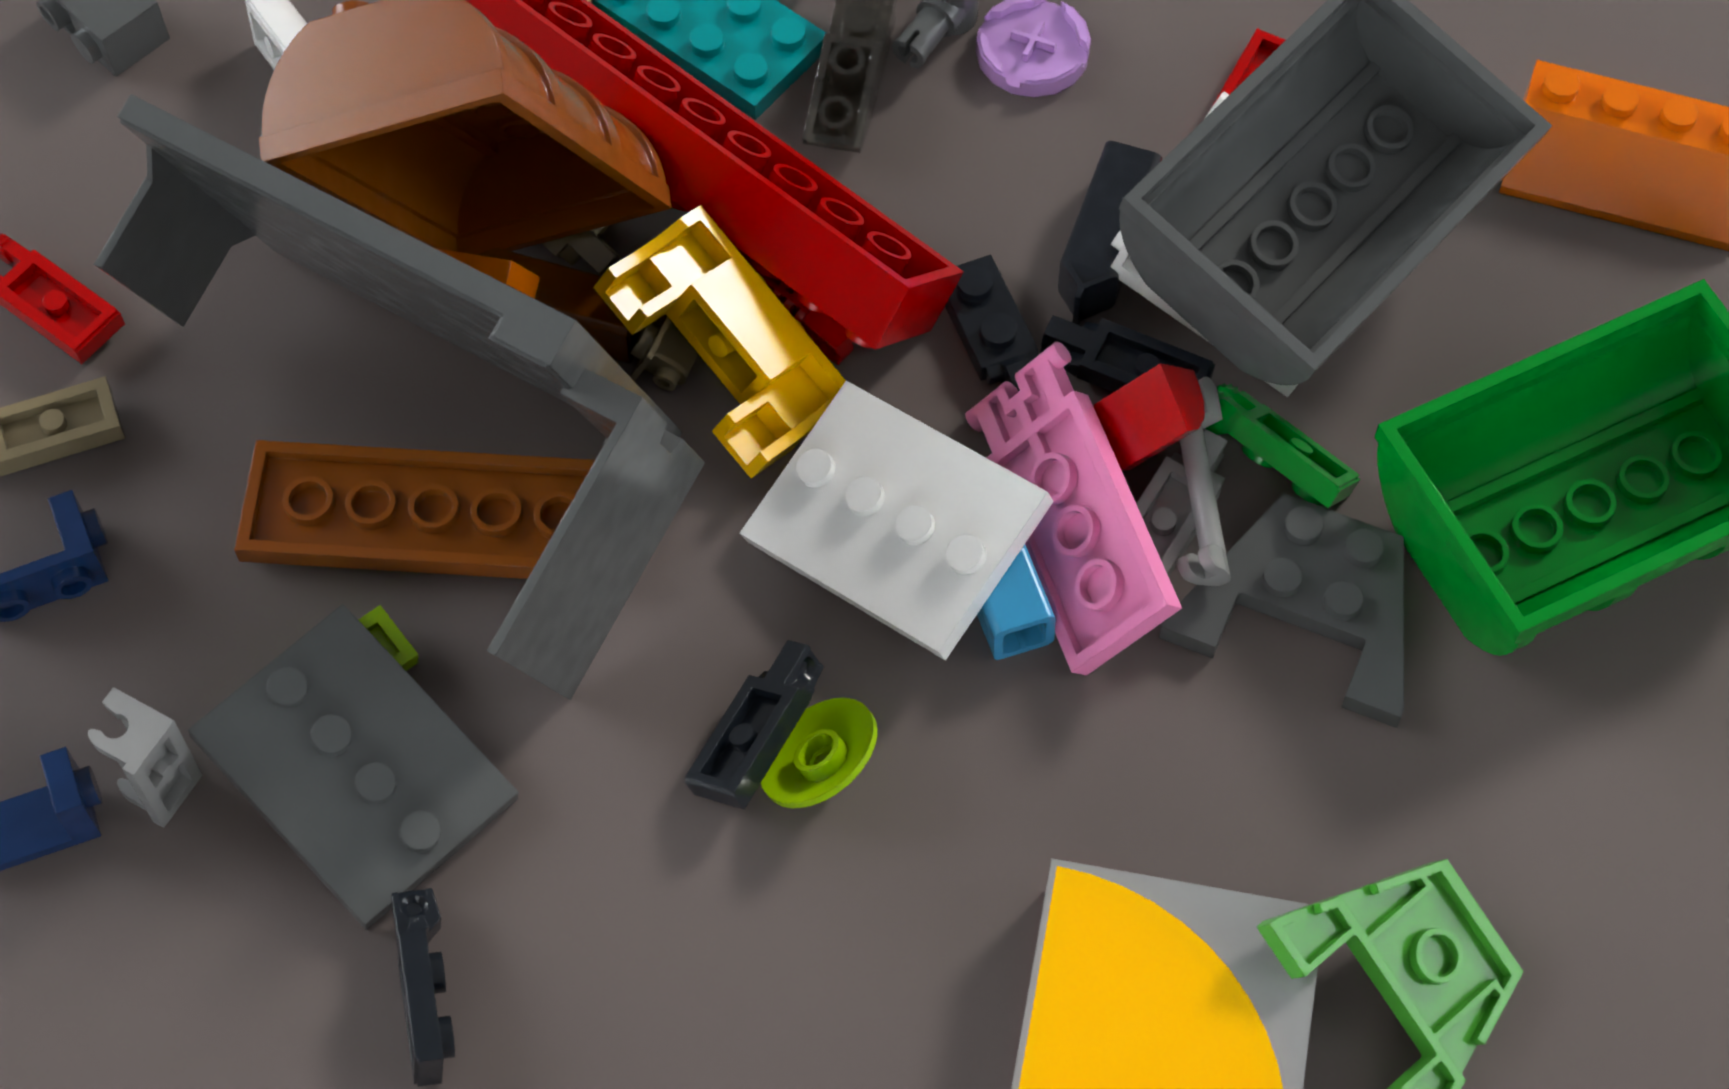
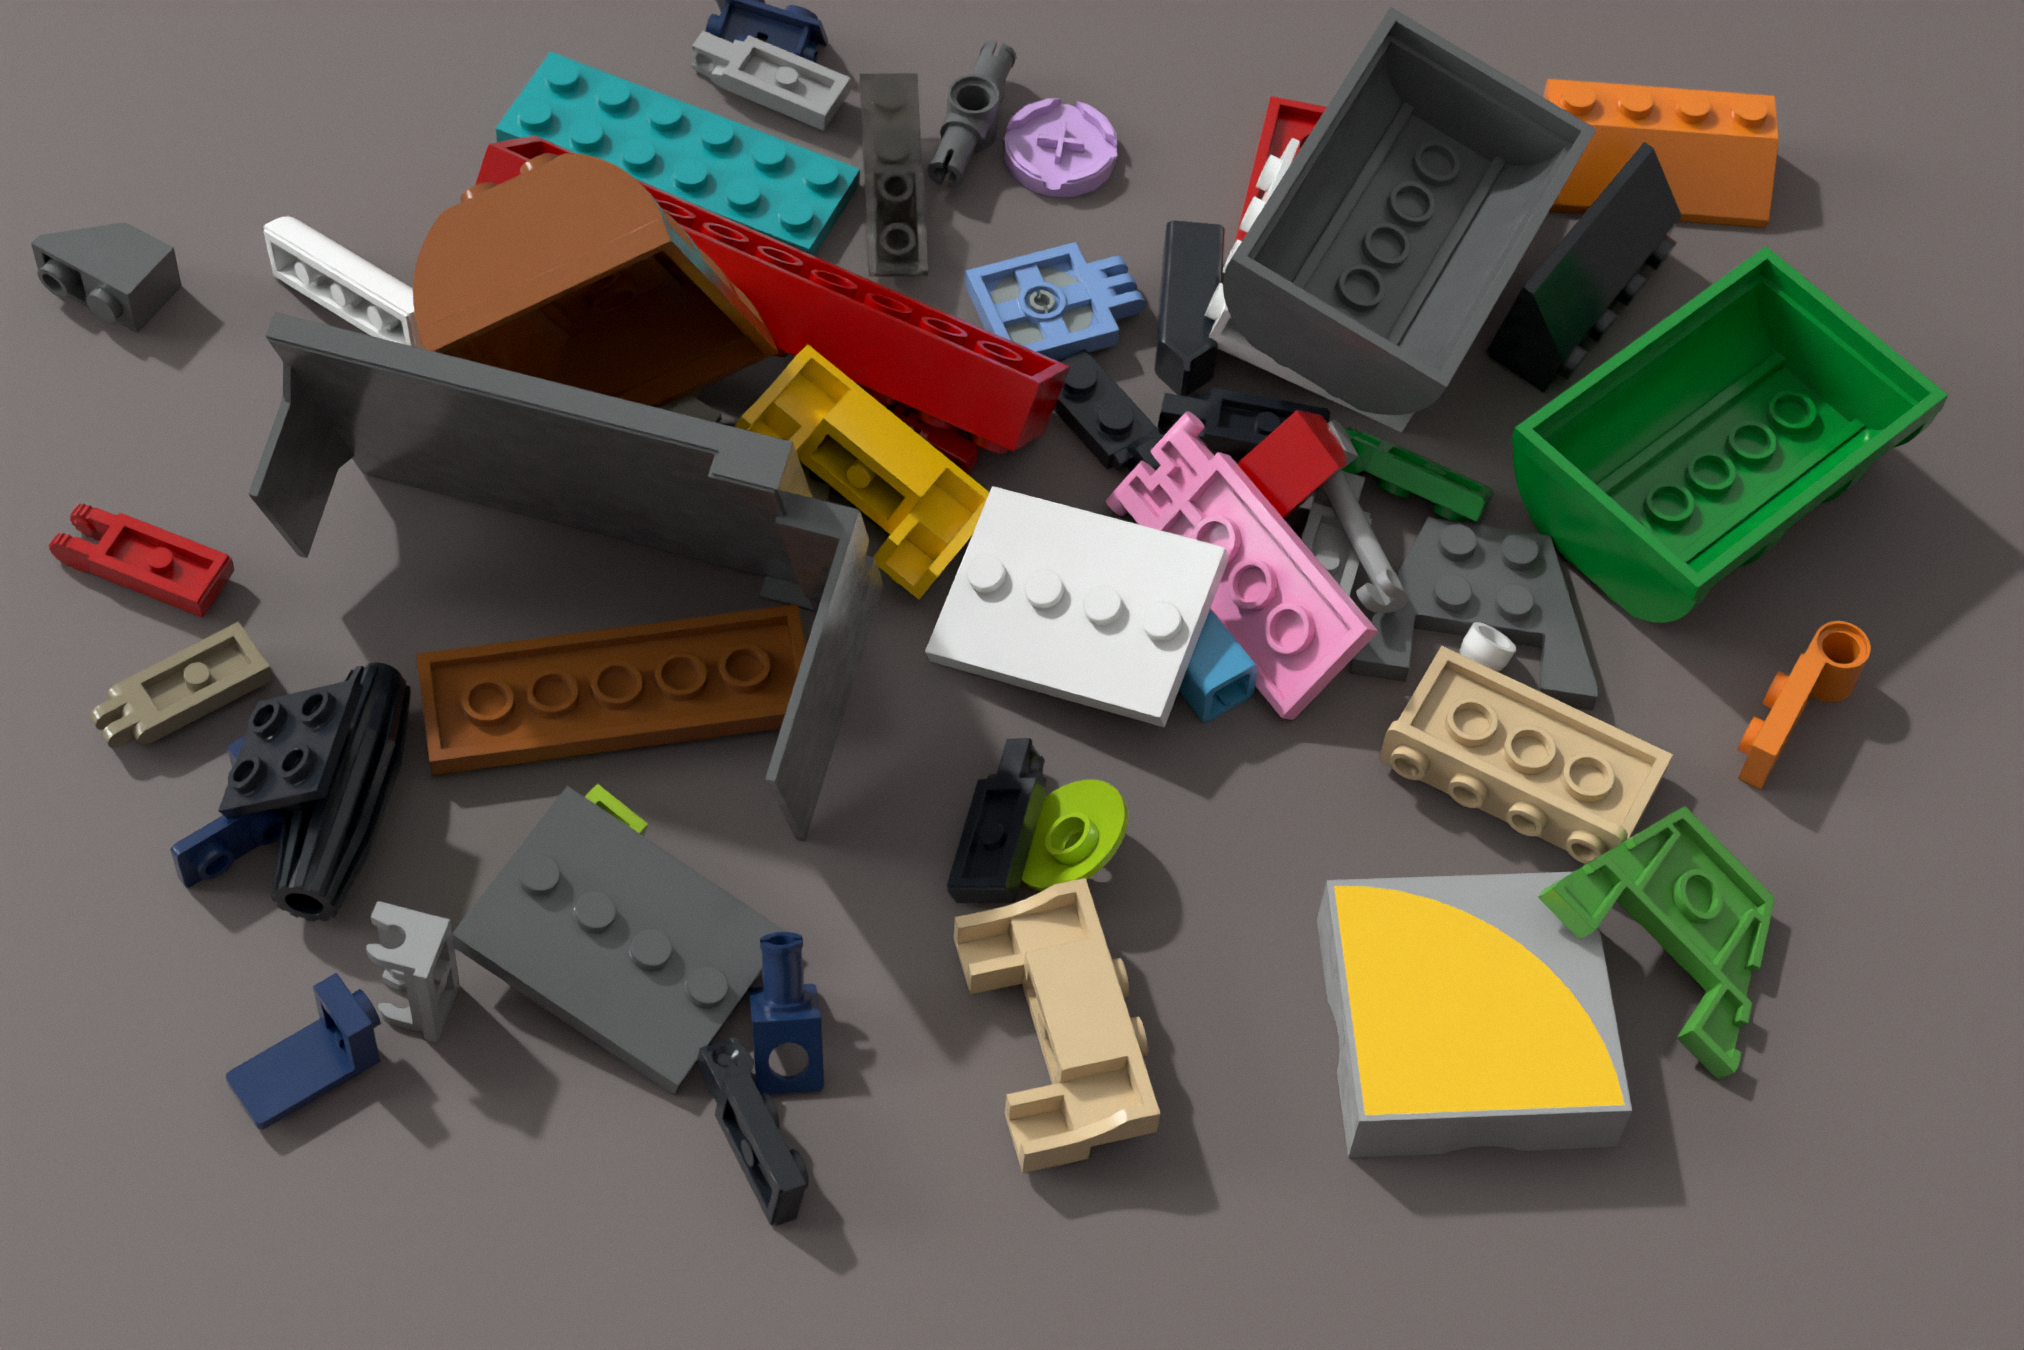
camera: 20 degrees left, 5 degrees down
(134, 543) = (332, 768): none -> black plate
(485, 878) = (785, 1013): none -> dark blue bracket
(769, 967) = (1080, 1018): none -> tan bracket
(976, 201) = (1055, 300): none -> medium blue piece
(1301, 643) = (1487, 646): none -> white hinge
(1305, 767) = (1524, 757): none -> tan bracket
(1522, 269) = (1589, 274): none -> black slope
(1605, 757) = (1824, 672): none -> orange plate

